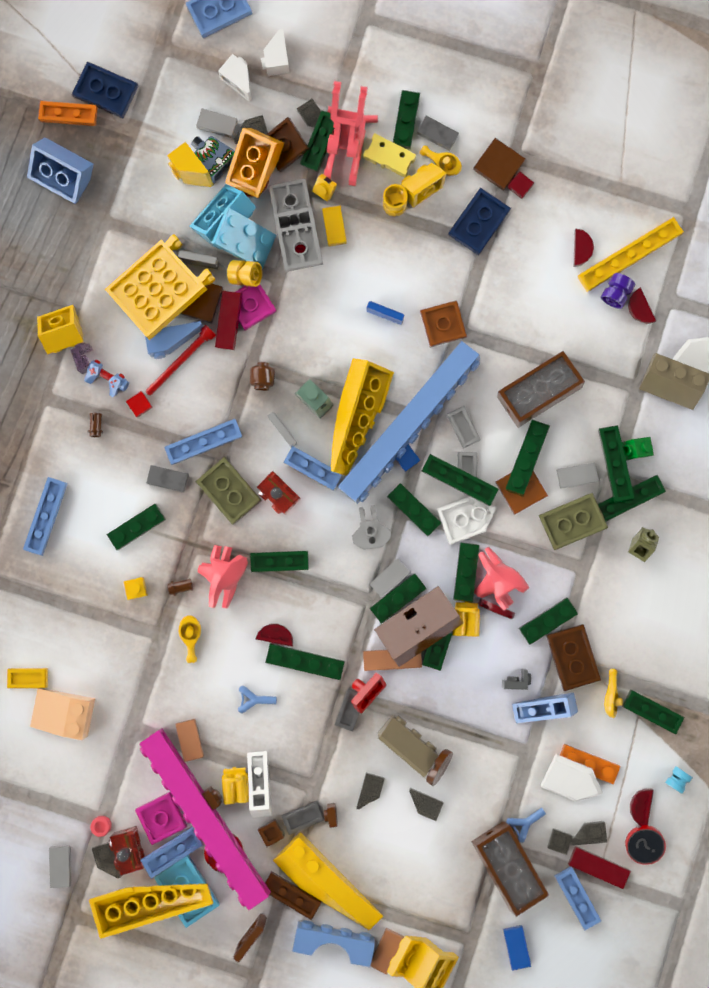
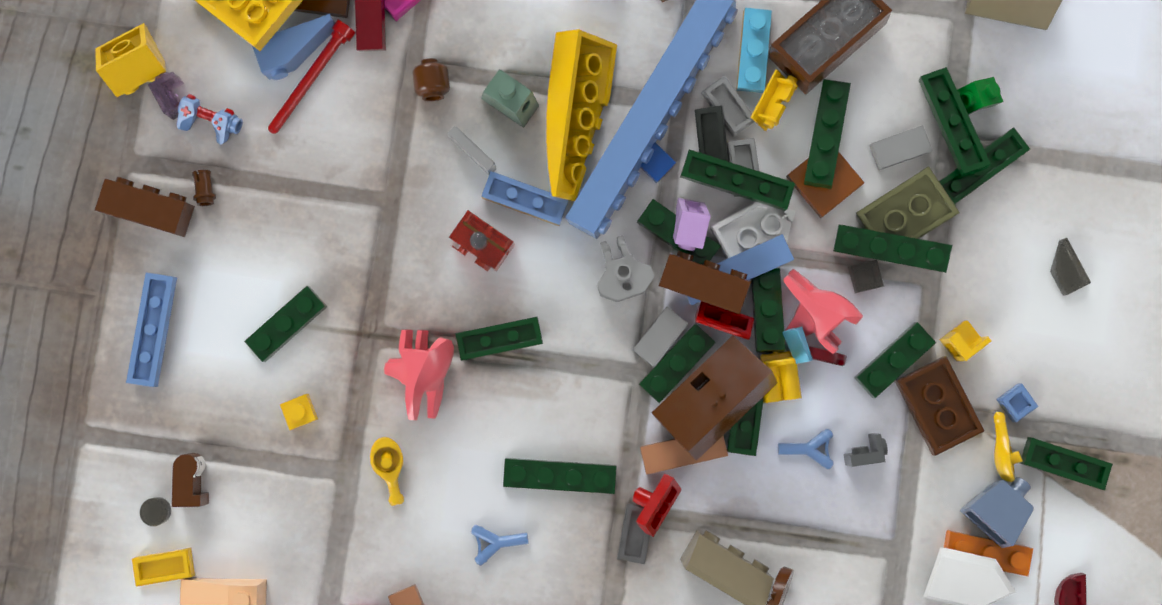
camera: 20 degrees left, 0 degrees up
(28, 639) = (155, 511): none -> clear smoke tile
(53, 623) = (187, 481): none -> reddish brown leg
(54, 431) = (145, 206): none -> reddish brown brick
(139, 404) = (261, 148): red tile -> none
(167, 478) = (319, 247): flat silver tile -> none
(180, 586) = (362, 398): reddish brown pin -> none
(203, 442) = (362, 186): medium blue plate -> none
(228, 490) = (409, 250): olive tile -> none
(275, 634) = (511, 443): dark red tile -> none
(422, 505) = (691, 224): none -> lavender arch
(425, 546) = (705, 282): none -> reddish brown brick
(434, 574) = (724, 320): none -> red slope
(448, 444) = (712, 132): none -> pearl dark grey tile
(449, 541) = (757, 260): none -> medium blue tile
(479, 672) = (810, 449): none -> medium blue piece
(481, 599) = (798, 344): none -> medium azure piece
(487, 391) = (753, 50): none -> medium azure plate
(490, 433) = (769, 107): none -> yellow hinge
(538, 560) = (866, 276): none -> clear smoke tile
(545, 708) = (914, 484): medium blue slope -> none
(558, 544) = (892, 248): none -> dark green plate
(597, 616) = (964, 341): none -> yellow panel
(601, 736) = (1001, 511): none -> sand blue torso
(627, 664) = (1017, 402): none -> medium blue tile
(644, 544) = (1013, 227): olive brick -> none
(678, 578) = (1068, 269): none -> clear smoke tile
(678, 780) = (1119, 554): medium azure wheel -> none

